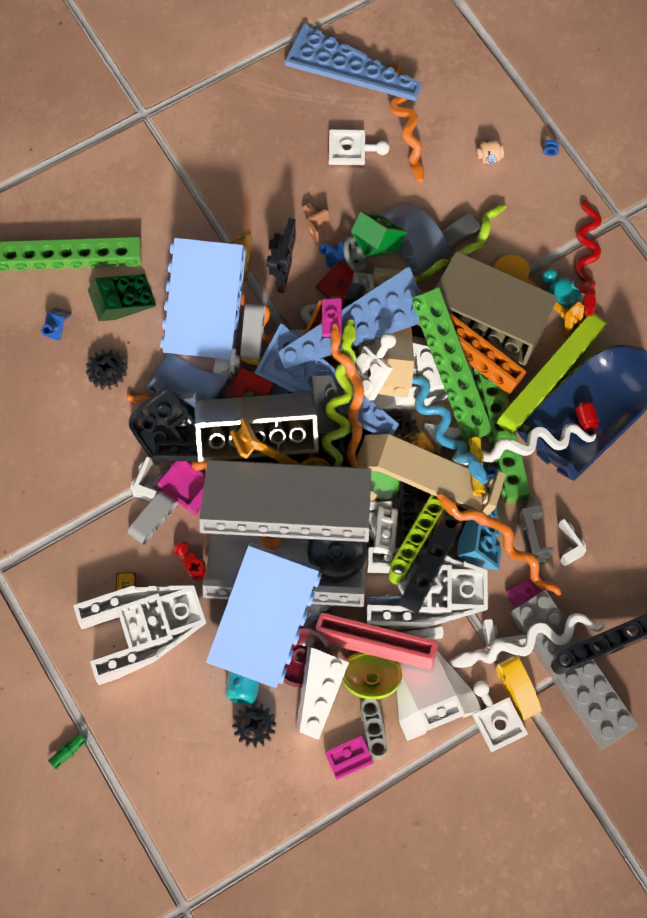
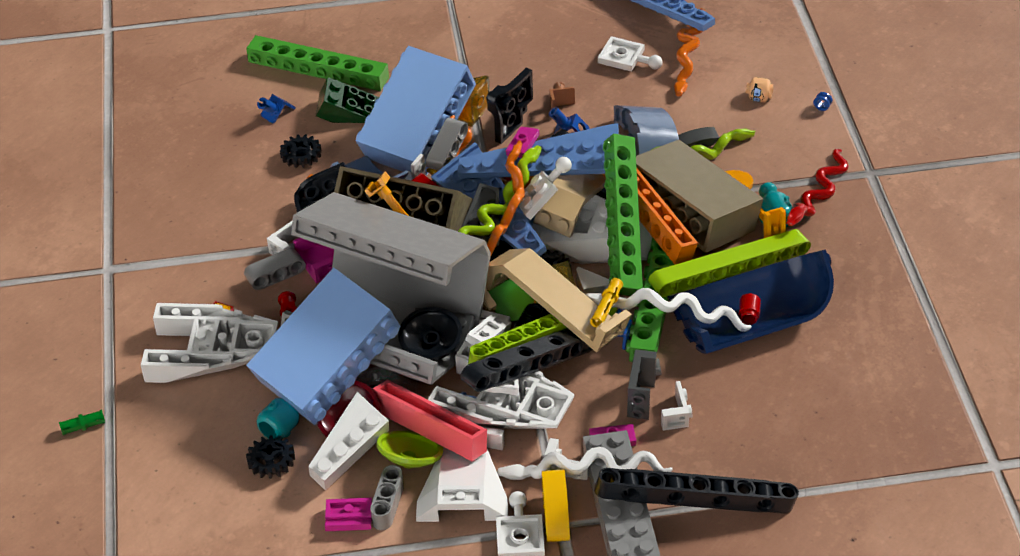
camera: 25 degrees right, 25 degrees down
(374, 238) = (602, 109): green piece -> none
(461, 456) = (595, 287): dark azure animal -> none
(476, 515) = (609, 371): orange animal -> none
(479, 544) = (590, 373): dark azure wedge -> none

